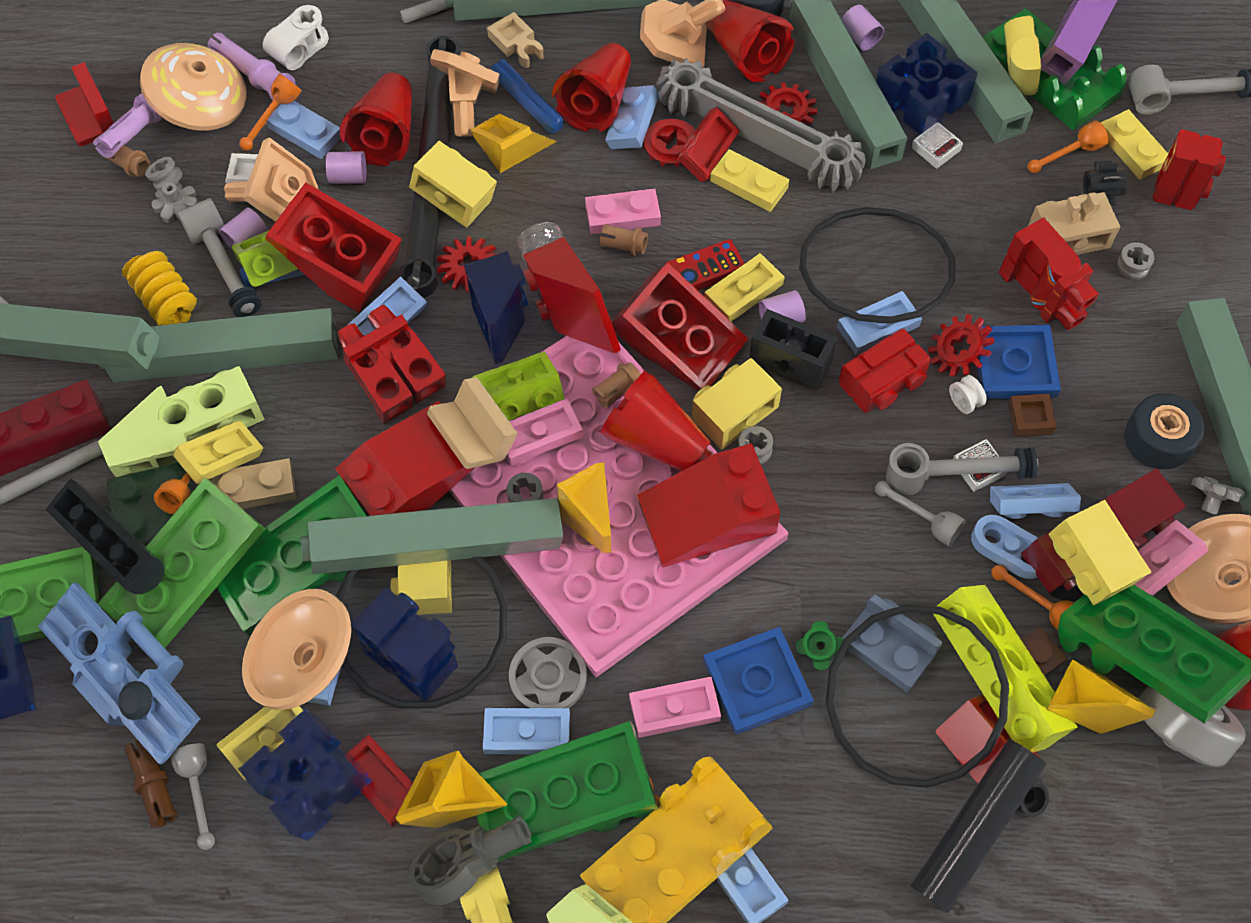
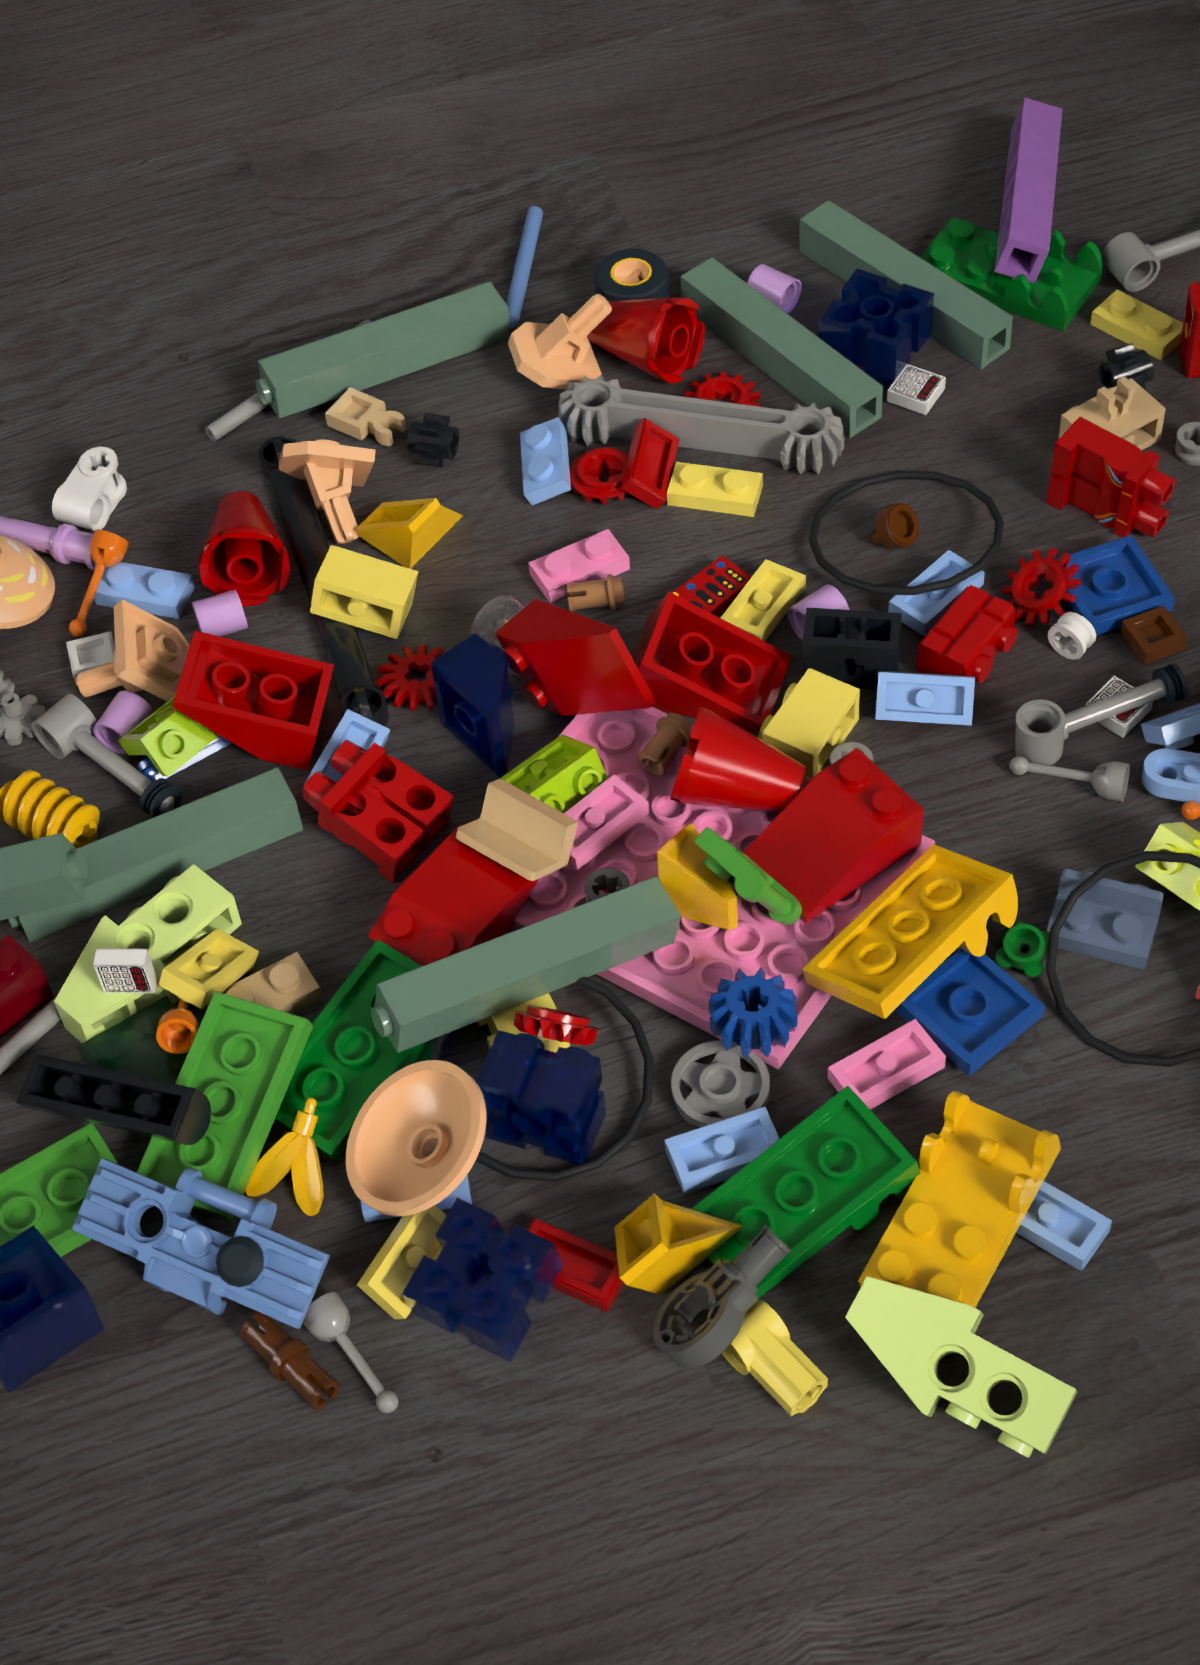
camera: 15 degrees left, 10 degrees down
(149, 438) = (125, 970): none -> white tile
(220, 621) = (293, 1152): none -> yellow piece
(432, 594) = (555, 1025): none -> red gear
(528, 97) = (415, 479): blue axle -> none
(550, 69) = (433, 440): none -> black gear
(585, 617) = (753, 1012): none -> blue gear
(593, 88) = (487, 443): red cone -> none
(626, 516) = (748, 878): none -> bright green plate
(735, 606) = (913, 929): none -> yellow hinge
(832, 409) = (925, 697): none -> light blue plate
(871, 257) = (895, 526): none -> reddish brown tile
(1023, 54) = (977, 259): light yellow brick -> none
(1090, 138) = (1088, 330): orange hinge -> none

